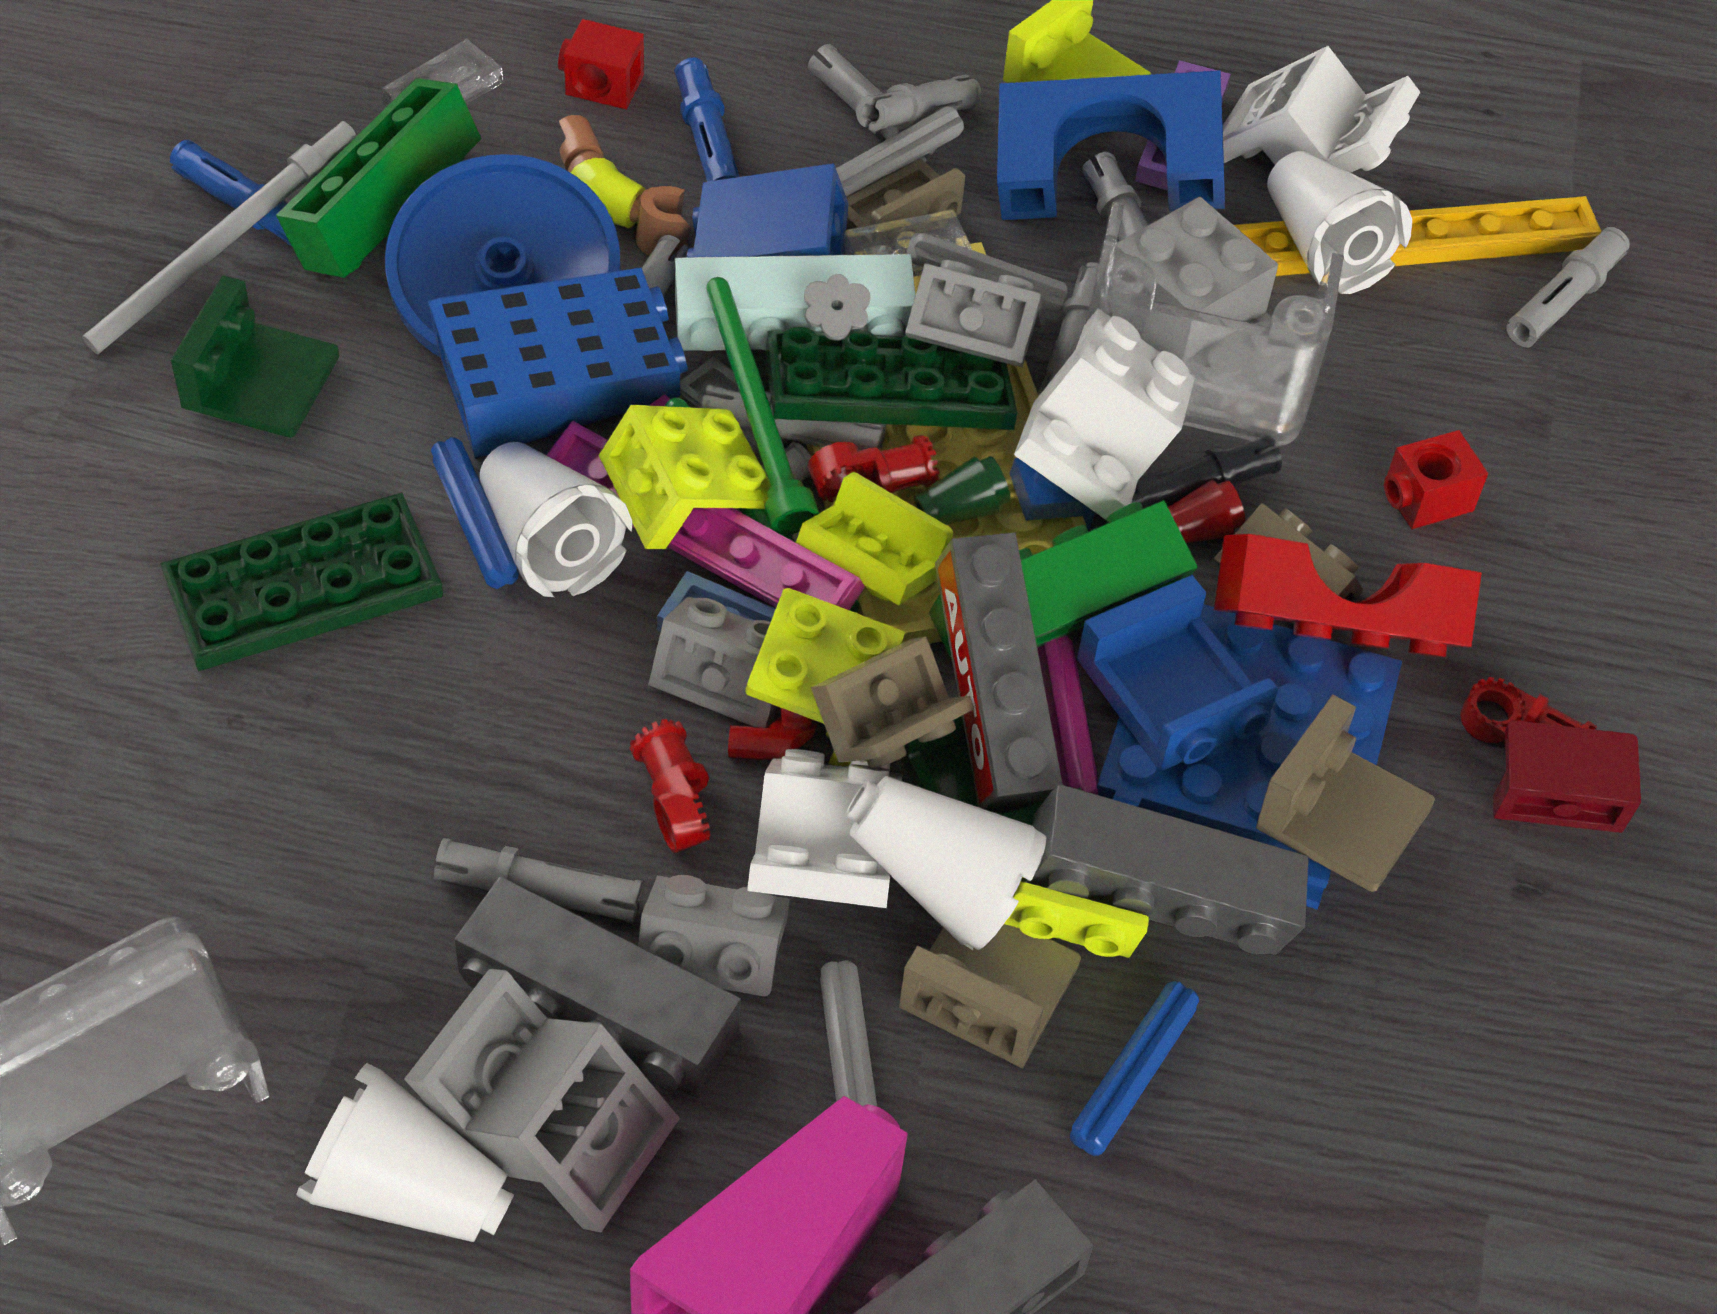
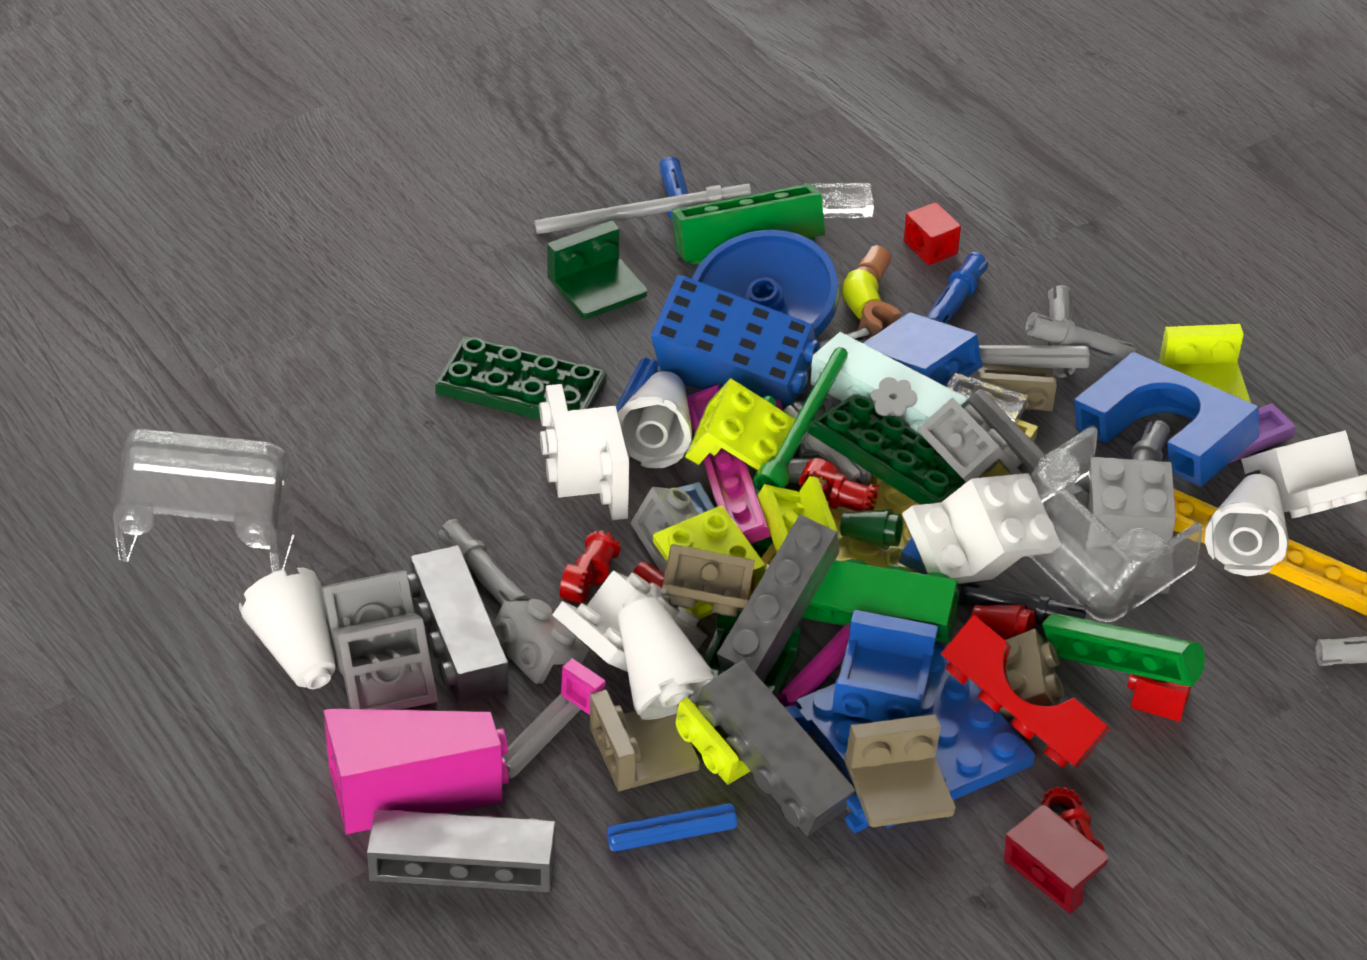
camera: 45 degrees right, 10 degrees down
(521, 624) = (585, 451): none -> white bracket
(869, 962) = (579, 683): none -> dark pink tile
(1387, 463) = (1125, 649): none -> green brick

